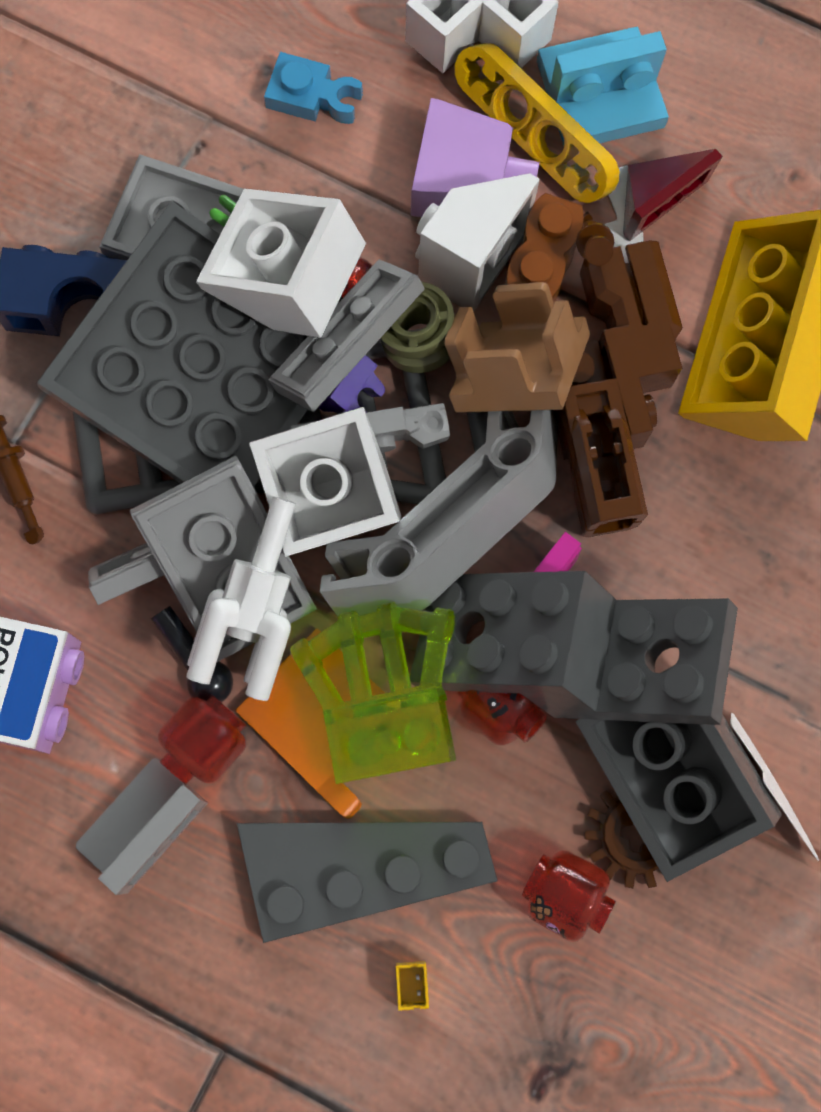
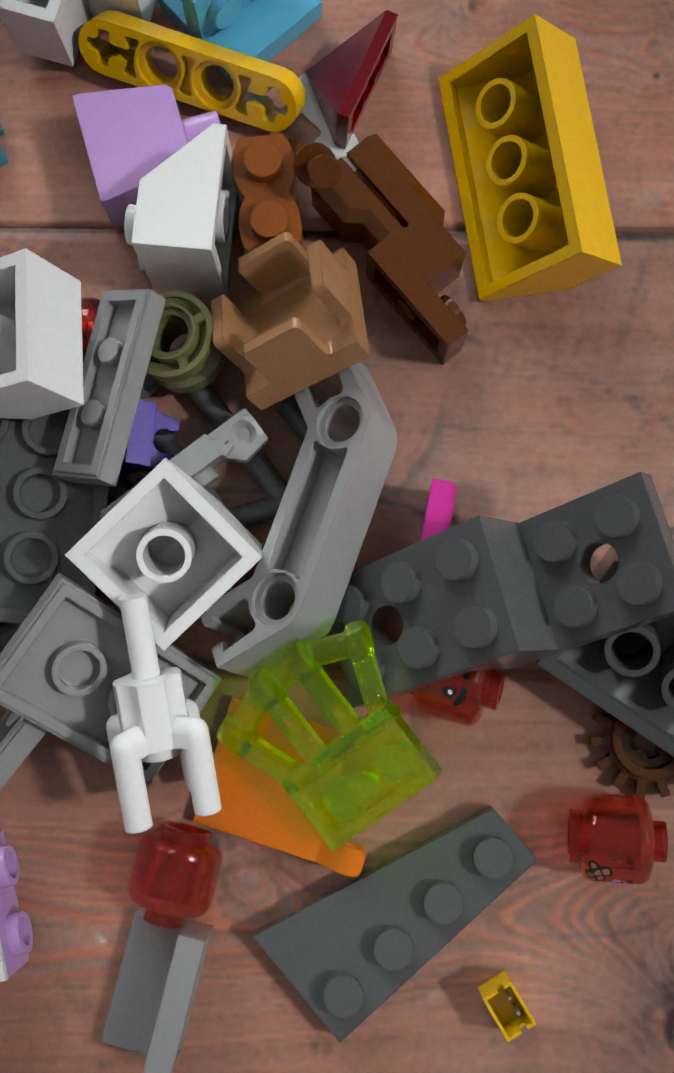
camera: 20 degrees left, 5 degrees up
(181, 643) = (162, 796): black bar -> none
(600, 450) = (425, 376): reddish brown plate -> none

